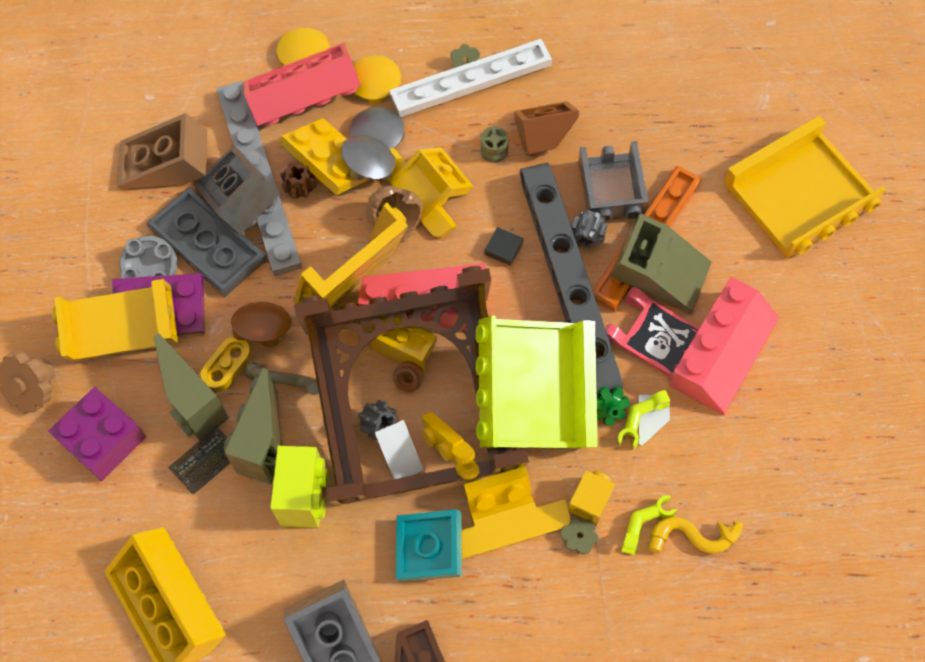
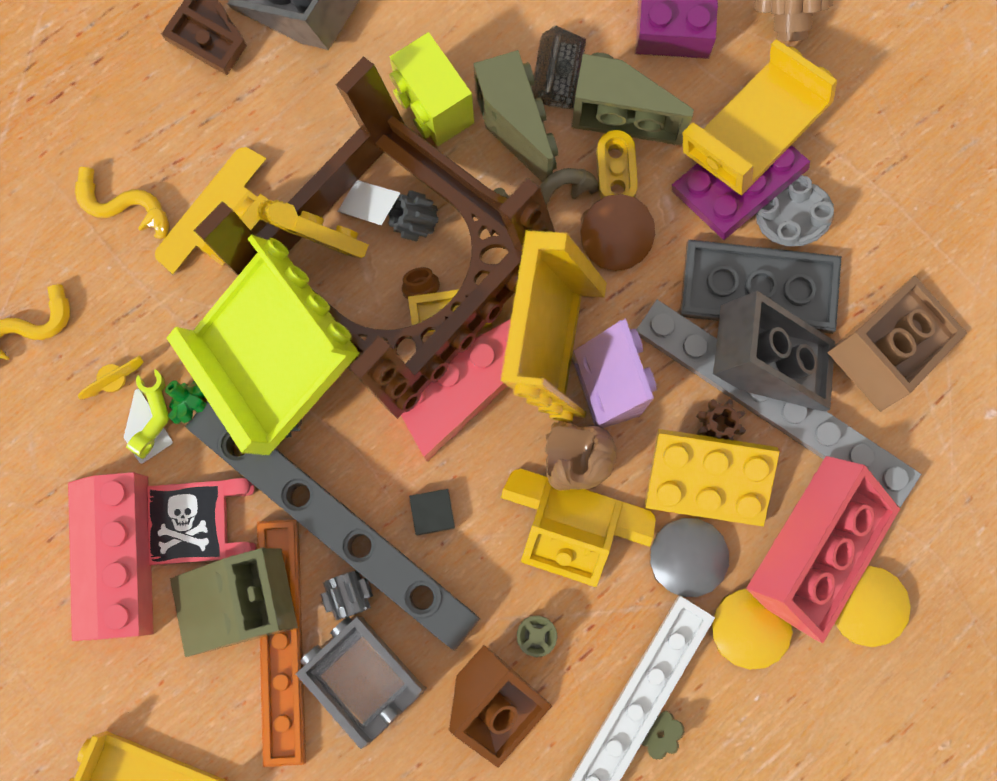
camera: 145 degrees right, 15 degrees up
(336, 227) = (614, 375): none -> lavender slope
(367, 158) = (660, 499): flat silver dish -> none
(428, 545) = (270, 132): teal plate -> none
(585, 529) = (130, 243): olive plant -> none
(591, 496) = (145, 291): yellow brick -> none
(592, 597) = (85, 196): none -> yellow animal
(640, 516) = (83, 281): neon yellow arm -> none
(653, 459) = (111, 378): none -> yellow piece

